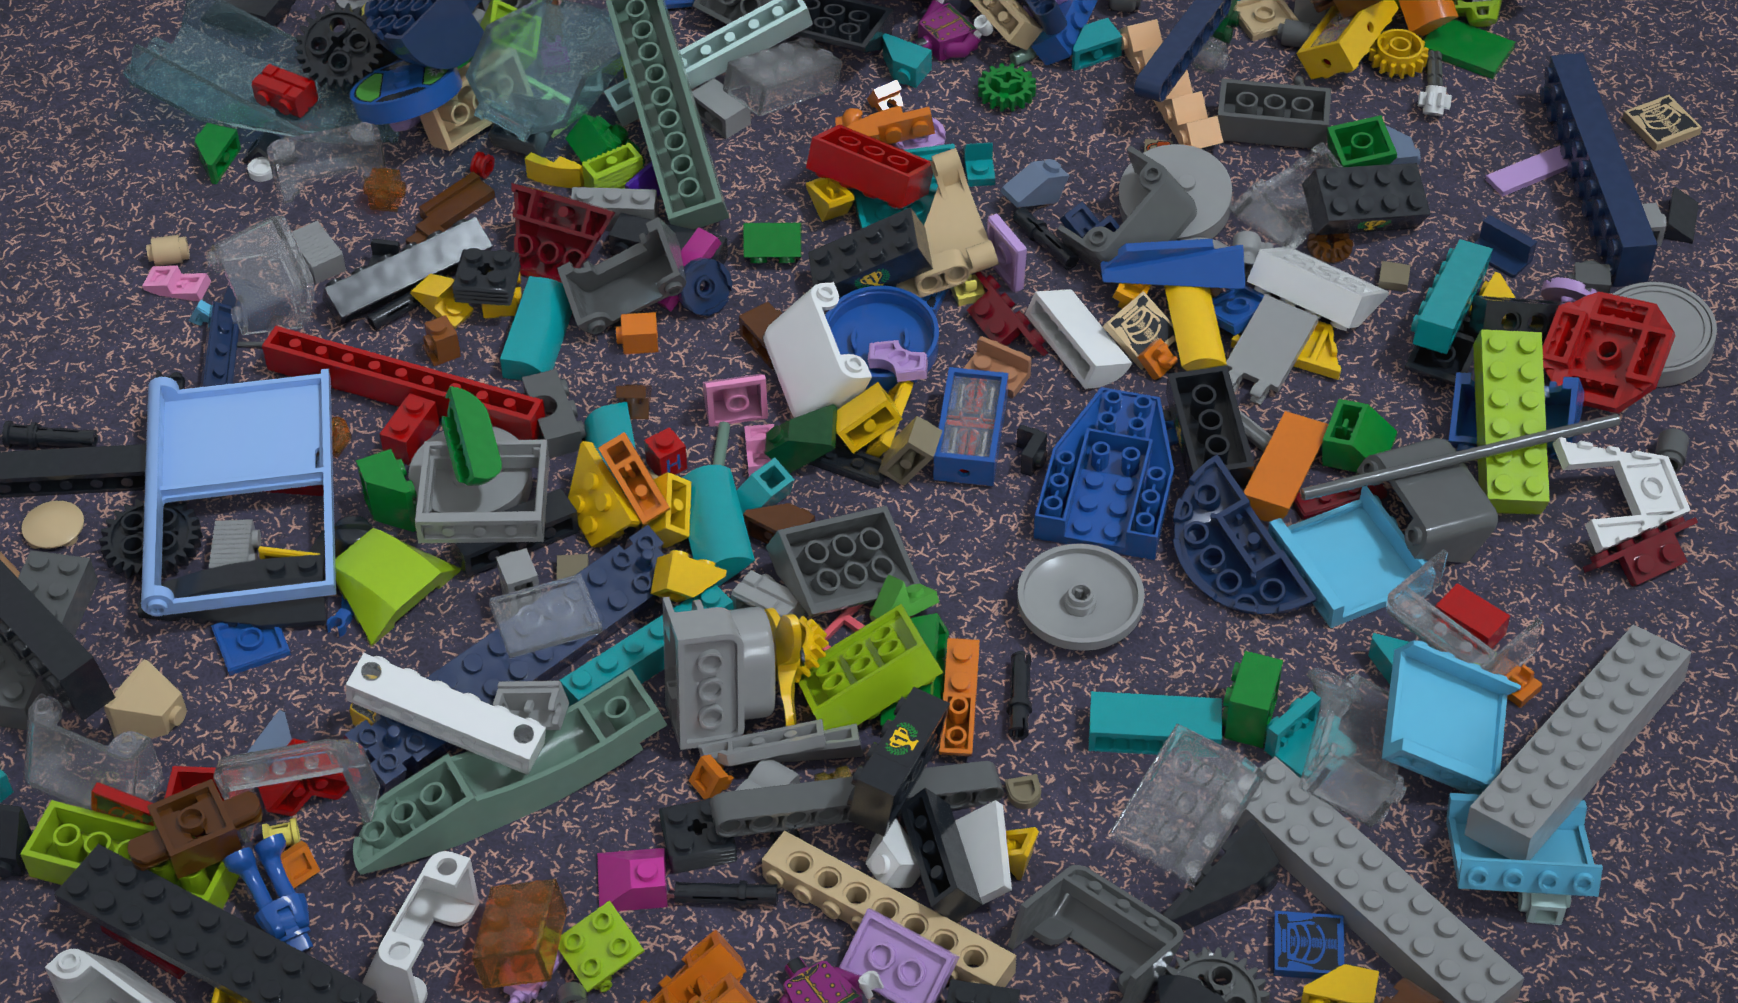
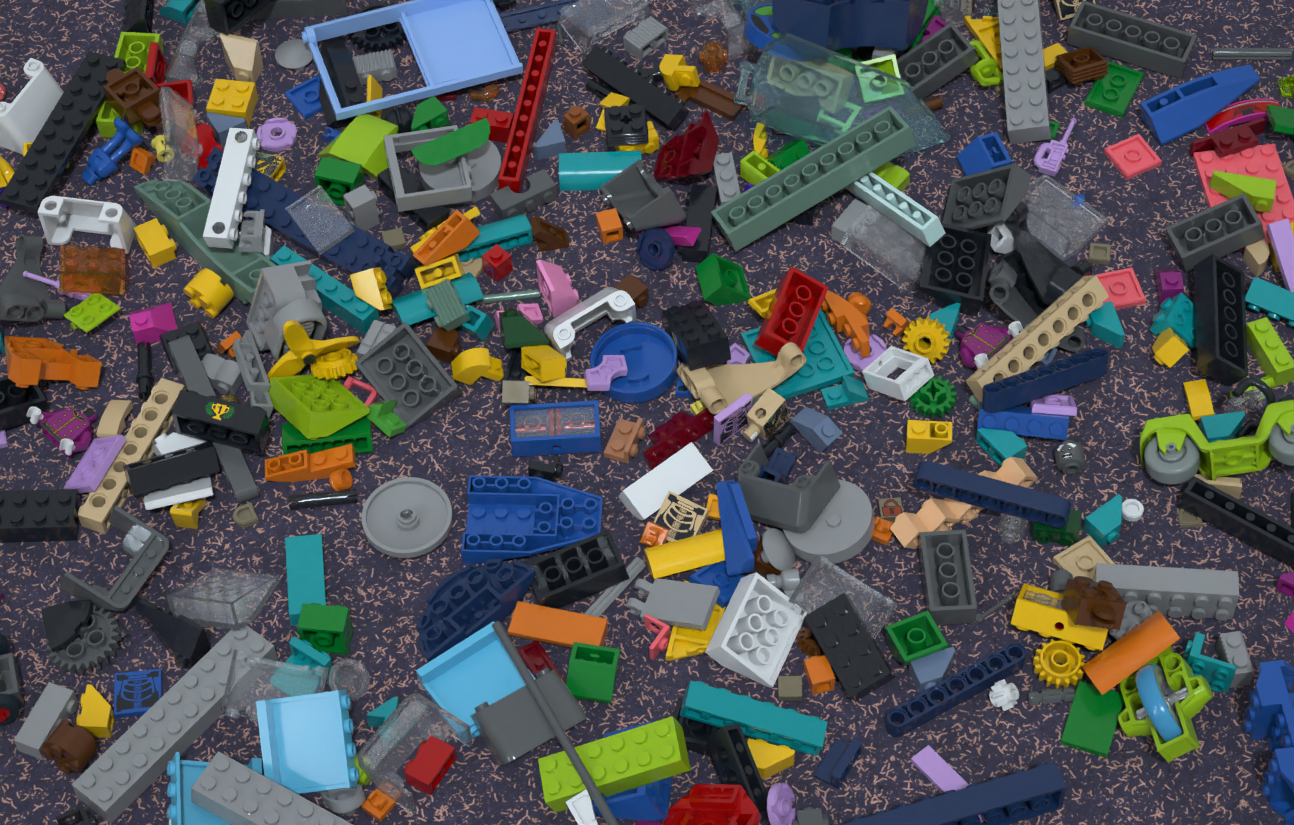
camera: 80 degrees right, 5 degrees up
(155, 643) = (293, 55): none -> light grey dish
(224, 727) = (233, 99): none -> yellow brick
(309, 704) = (277, 143): none -> lavender tile
(402, 226) = (677, 73): none -> yellow brick
(457, 604) = (338, 178): none -> green brick
(461, 363) = (550, 143): none -> sand blue slope
(489, 853) = (155, 243): none -> yellow brick
(612, 787) = (208, 292): none -> yellow brick
(751, 492) = (447, 305): none -> sand green brick
(812, 936) = (112, 420): none -> tan slope
(841, 492) = (475, 363): none -> yellow brick
(931, 69) = (931, 329): none -> yellow gear
(961, 88) = (916, 375): none -> white window
(992, 666) = (340, 479): none -> orange tile
(1010, 212) = (766, 416): none -> tan torso
(1068, 98) = (927, 436): none -> yellow slope
(1312, 373) = (662, 640): none -> coral bracket
(1384, 243) = (819, 674): none -> orange brick
(1409, 118) = (949, 698): none -> dark blue beam
(1522, 714) = (344, 799): none -> light grey piece

